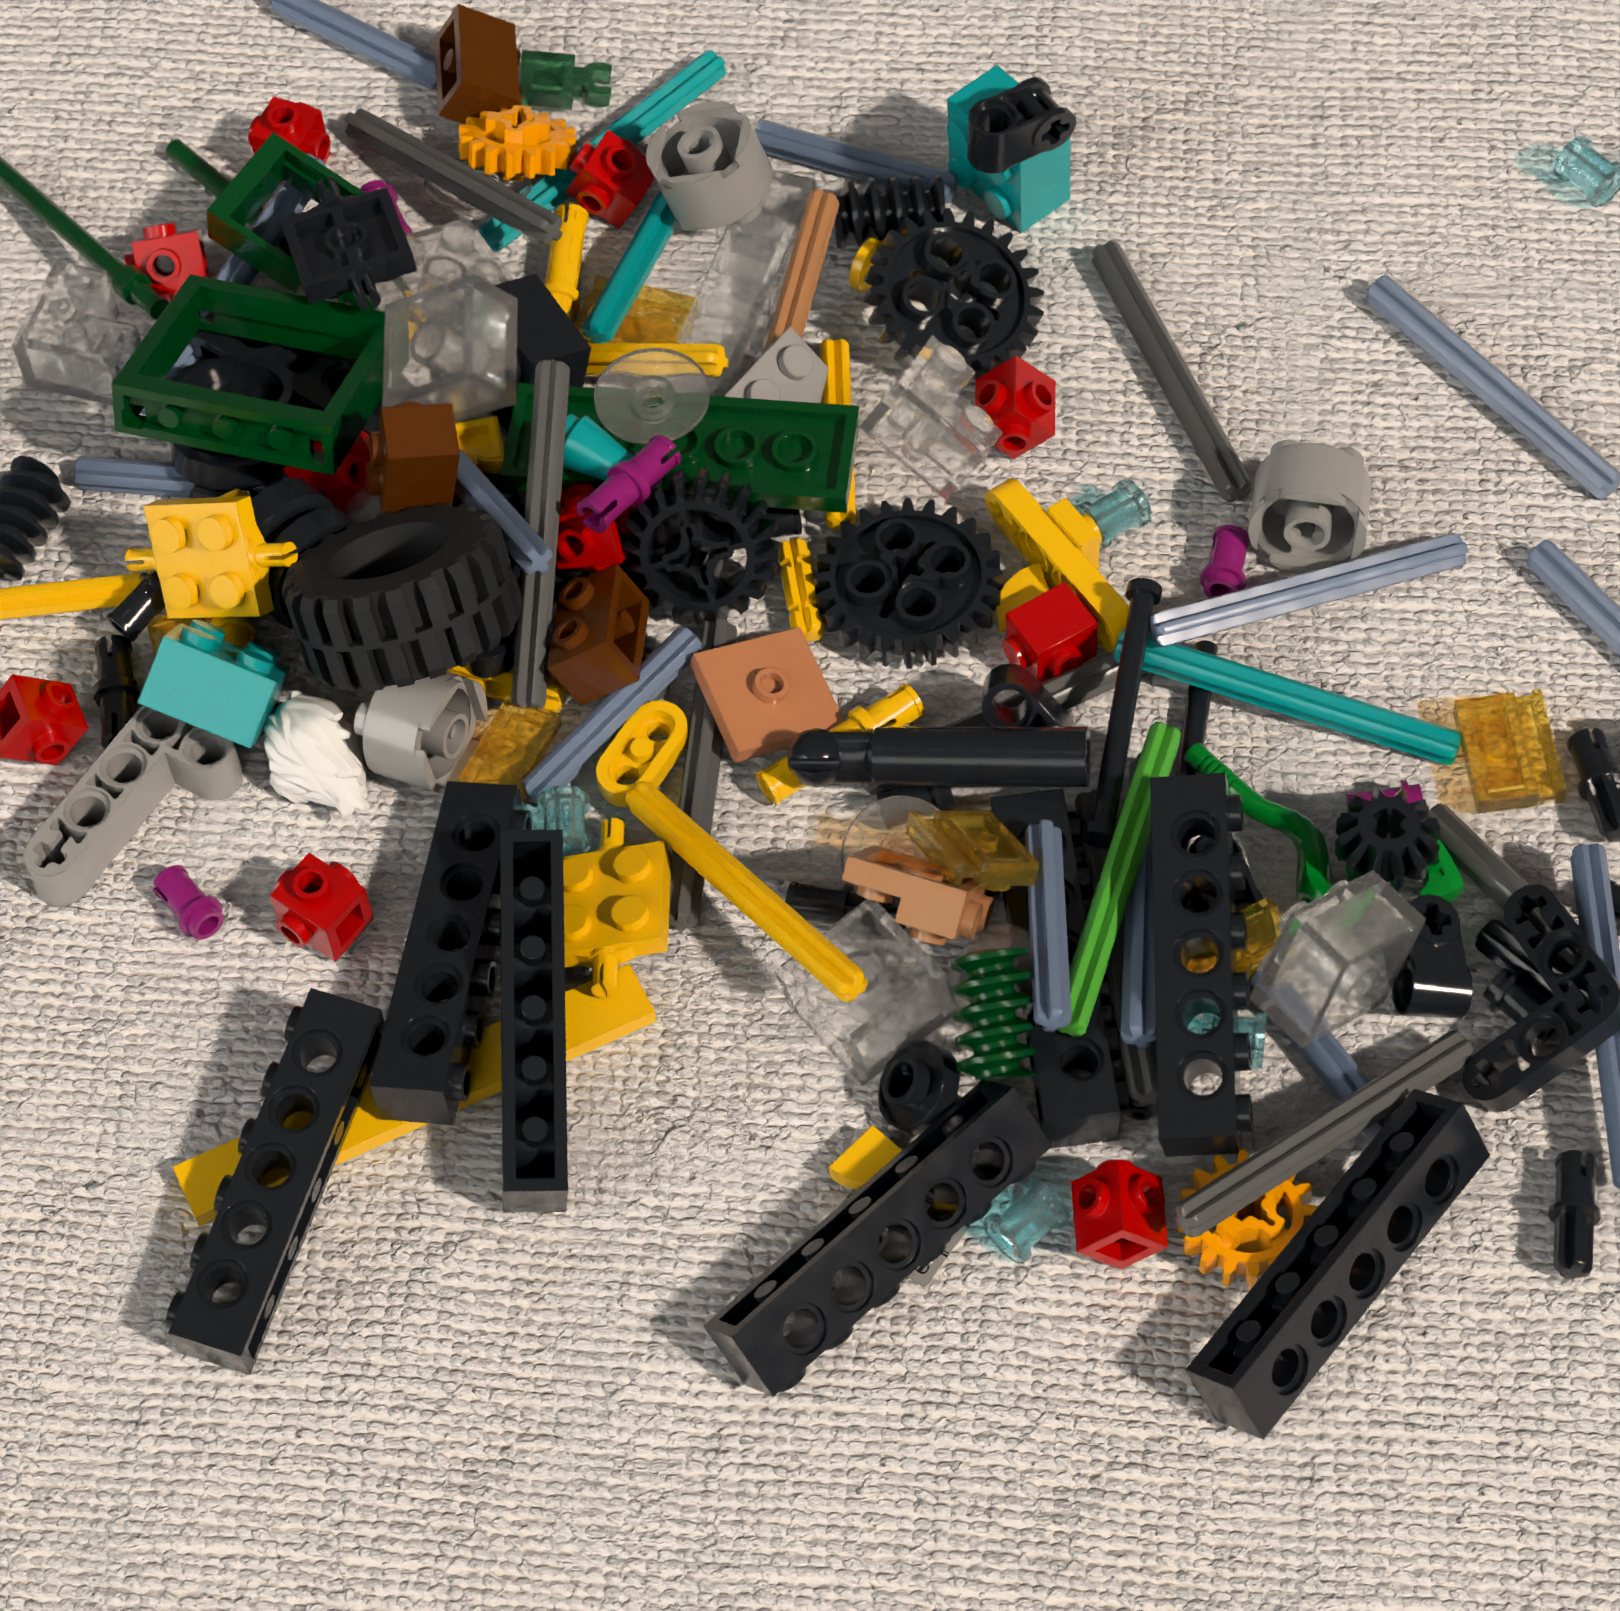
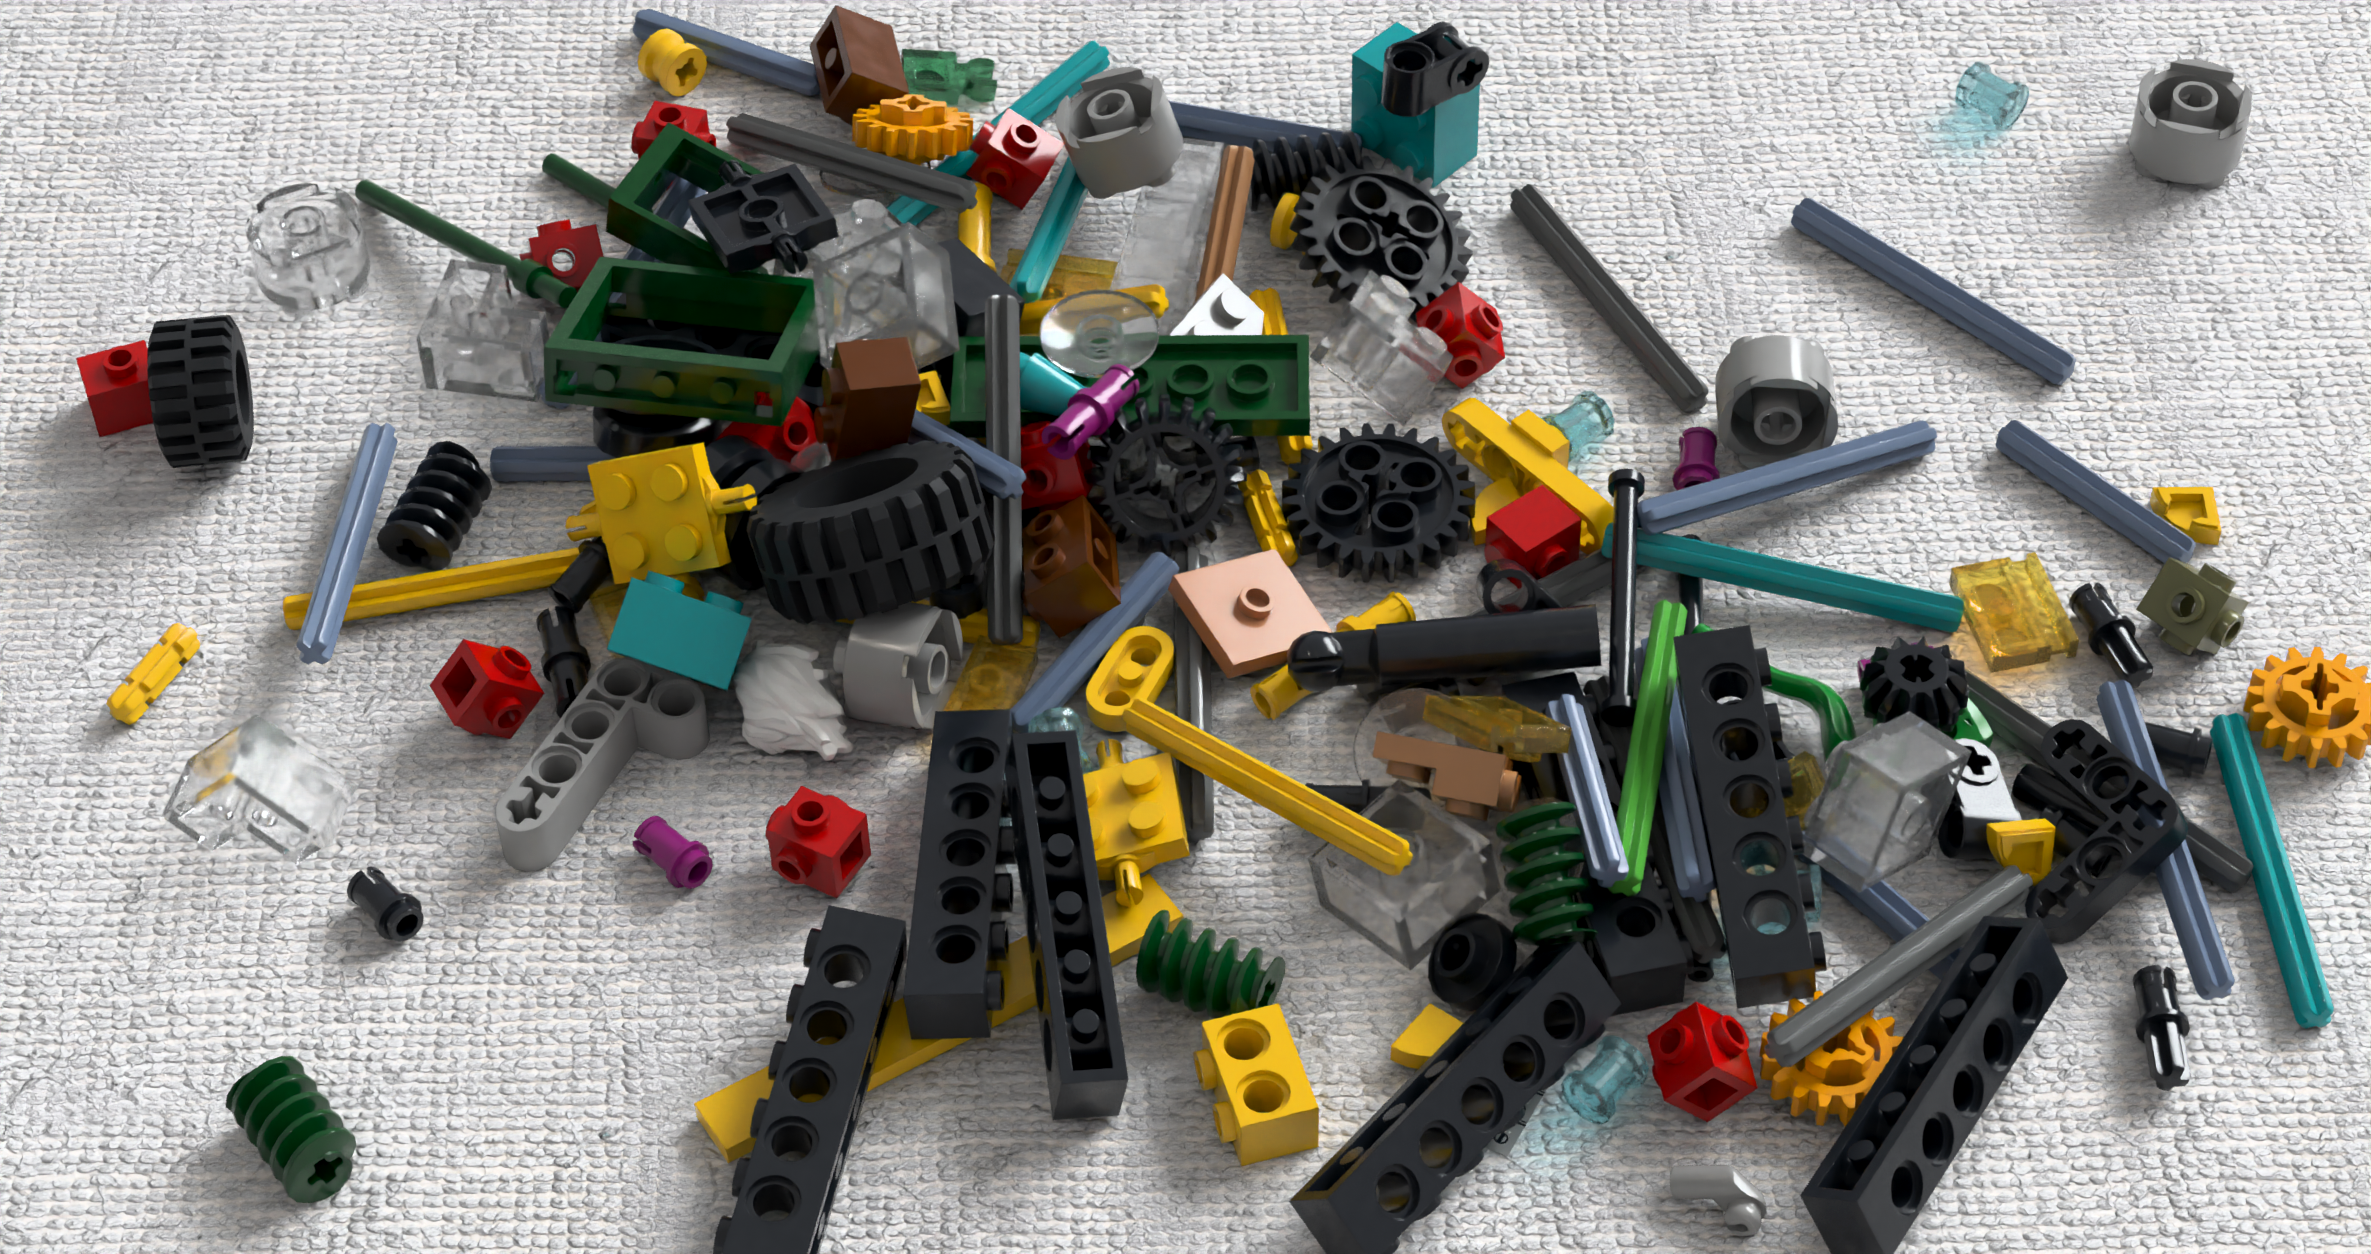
camera: 10 degrees left, 10 degrees down
(301, 47) = (672, 62): none -> yellow wheel
(662, 1079) = (1202, 974): none -> dark green piece
(700, 1196) = (1255, 1070): none -> yellow brick
(1124, 1344) = (1728, 1188): none -> light grey arm
(1470, 1011) = (2023, 844): none -> yellow tile

